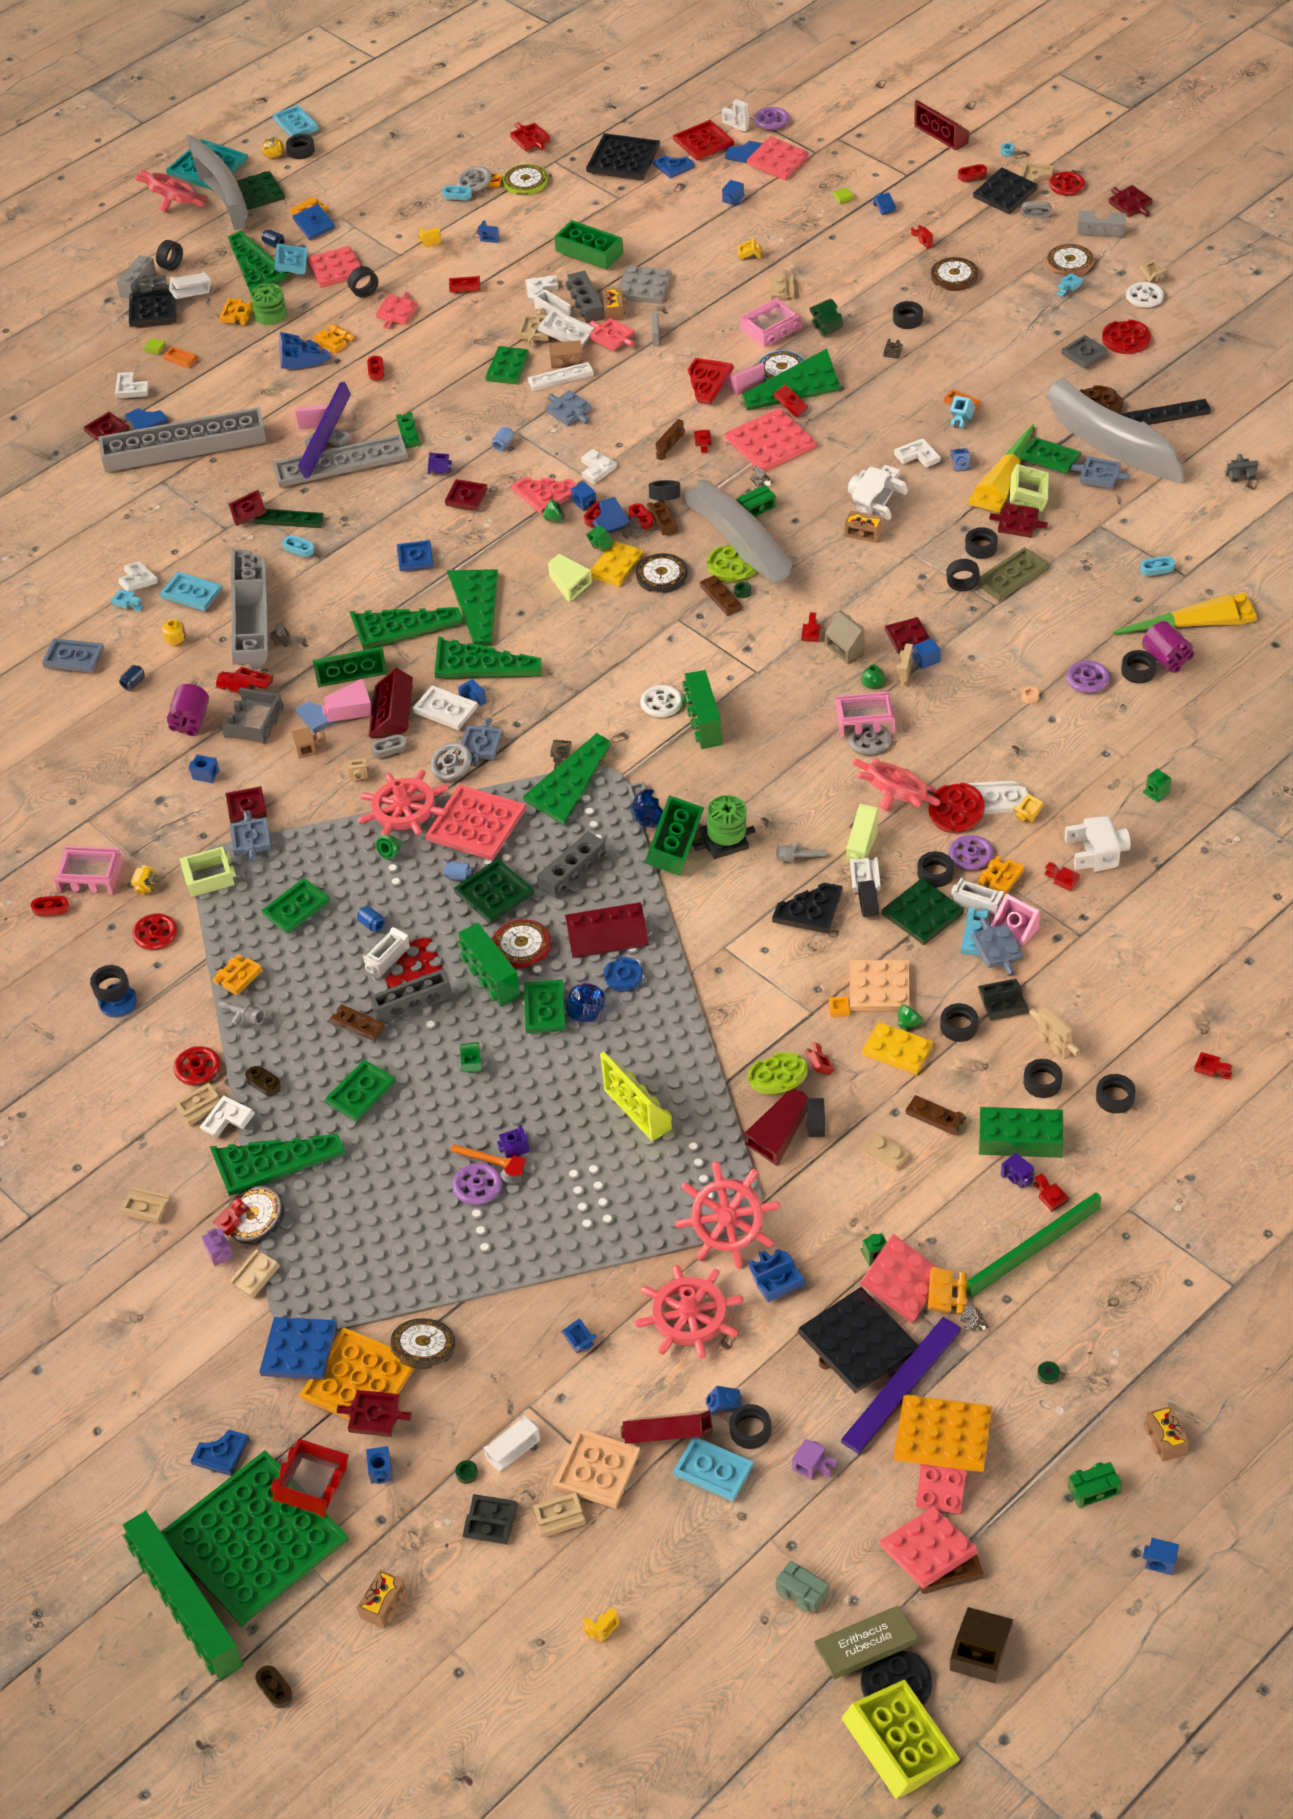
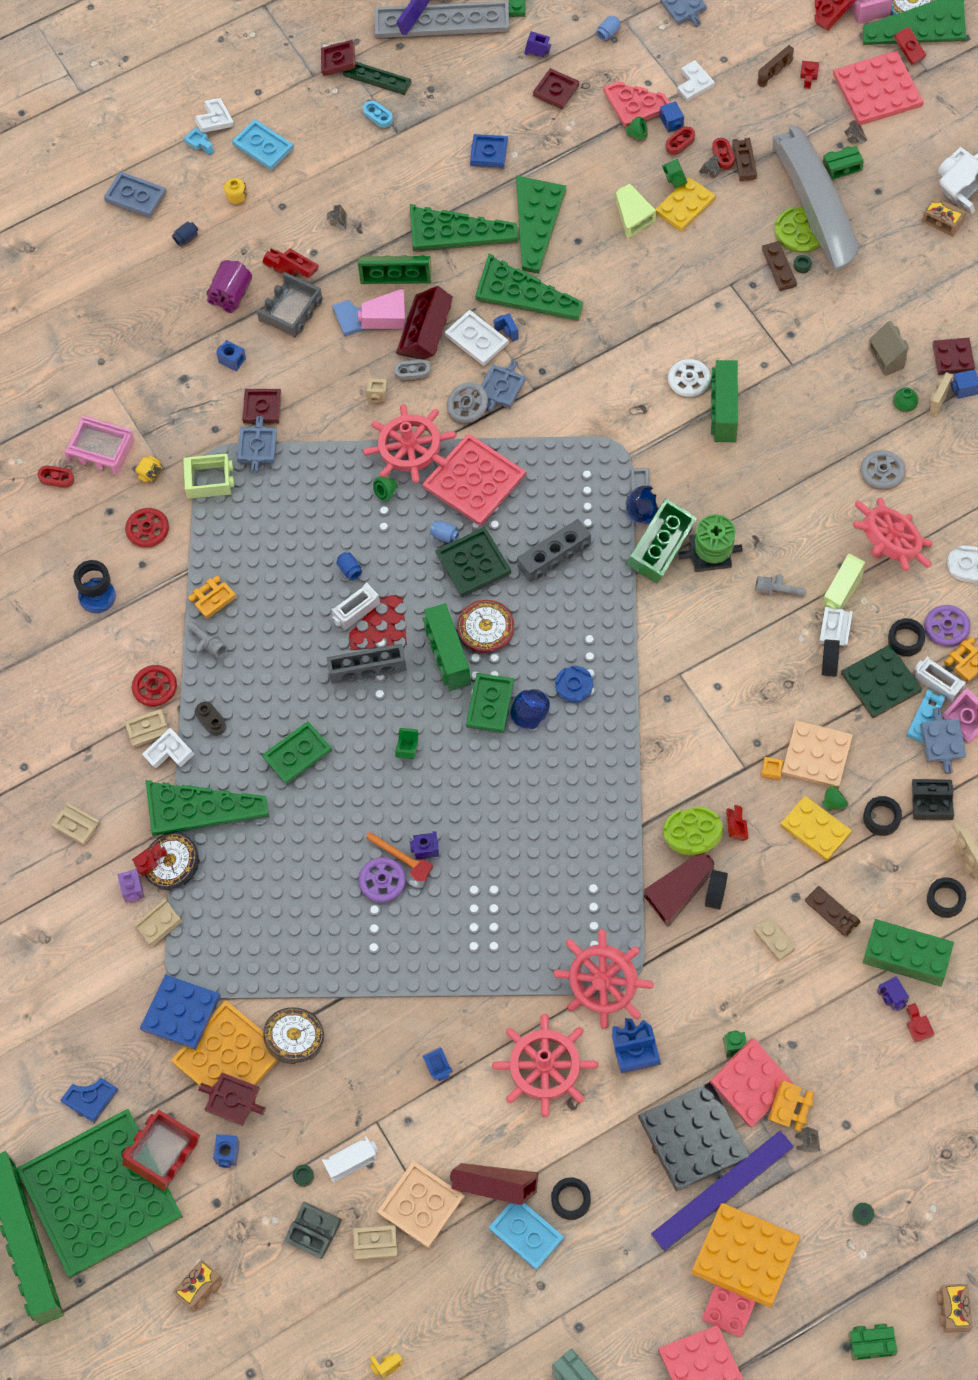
camera: 15 degrees right, 15 degrees up
(249, 609) = (312, 180): light grey slope -> none
(275, 1687) = (84, 1347): dark brown plate -> none
(295, 905) = (282, 533): green plate -> none
(306, 743) = (334, 347): medium nougat brick -> none
(357, 1022) = (311, 678): reddish brown plate -> none
(559, 750) = (575, 414): clear smoke plate -> none
(567, 782) = (571, 455): green wing -> none
(606, 930) = (569, 633): dark red slope -> none
(612, 515) = (693, 149): blue tile -> none
(634, 1099) = (550, 828): neon yellow slope -> none
(661, 572) = (727, 225): tile -> none
(664, 490) = (753, 128): black tyre -> none
(723, 1399) = (554, 1165): blue bracket -> none
(810, 909) = (773, 652): black plate -> none
(811, 1459) = (617, 1247): medium lavender brick -> none
(812, 630) = (858, 329): red plate -> none
(864, 709) = (885, 439): bright pink window -> none
(959, 808) = (949, 574): red tile -> none
(1033, 1244) = (887, 1076): green tile -> none

